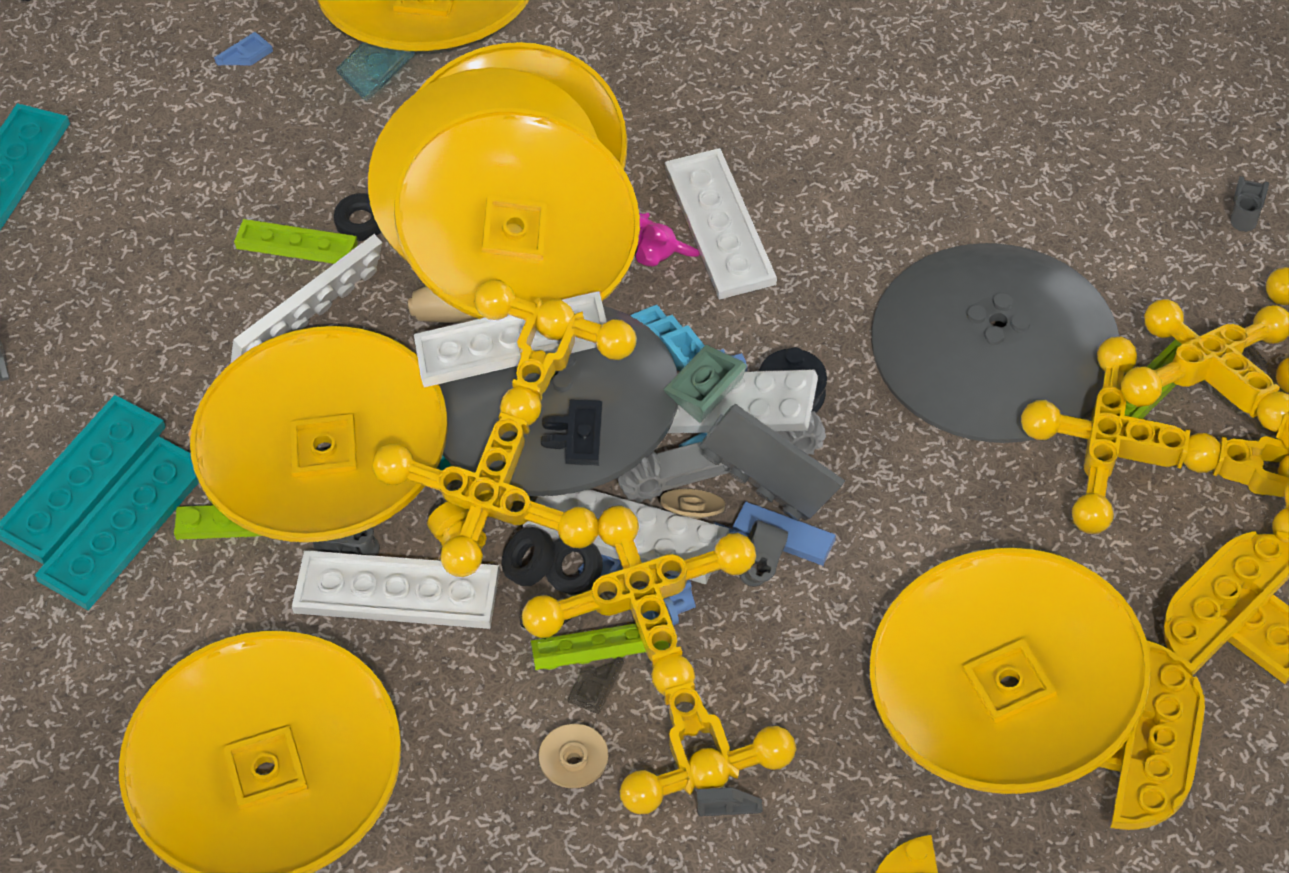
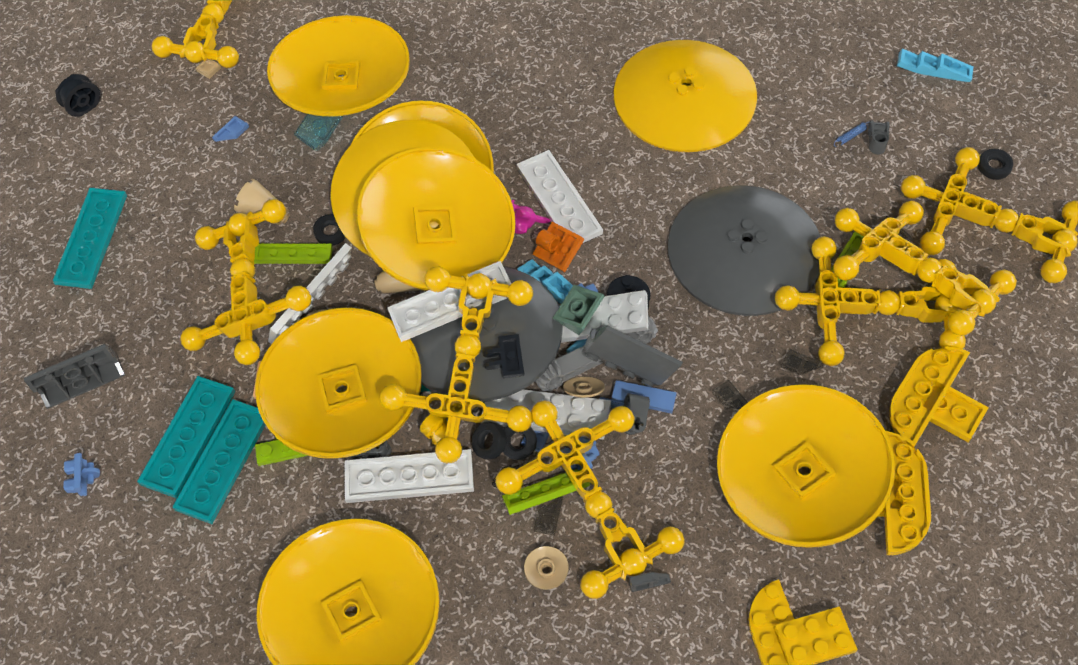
camera: 10 degrees left, 5 degrees up
(207, 307) = (246, 310): none -> yellow piece
(262, 162) = (252, 198): none -> tan cone
(699, 290) = (557, 246): none -> orange plate
(916, 552) = (729, 396): none -> clear smoke tile
(945, 132) = (681, 116): none -> yellow dish
(1041, 522) = (800, 363): none -> clear smoke tile
(1207, 193) = (852, 133): none -> medium blue piece

